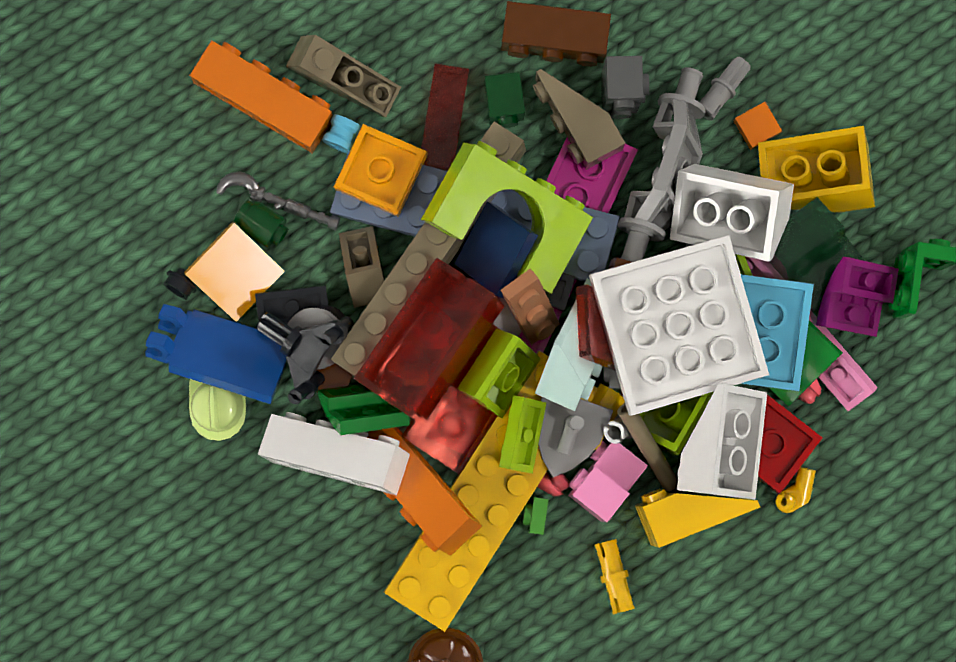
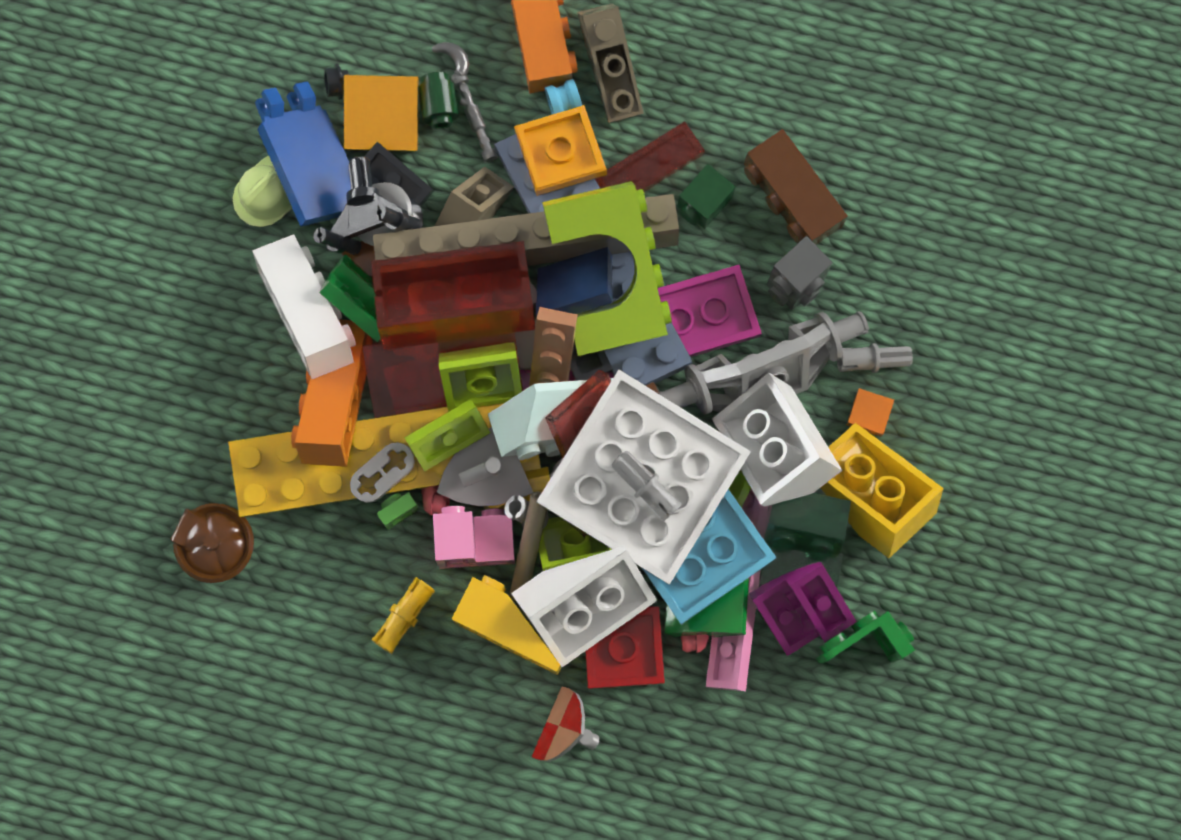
camera: 50 degrees right, 5 degrees down
(515, 503) = (376, 465): none -> light grey beam
(584, 123) = (741, 272): dark tan slope -> none
(691, 329) = (645, 485): none -> light grey axle
(794, 535) = (564, 728): none -> shield
(797, 494) = (604, 706): yellow arm -> none

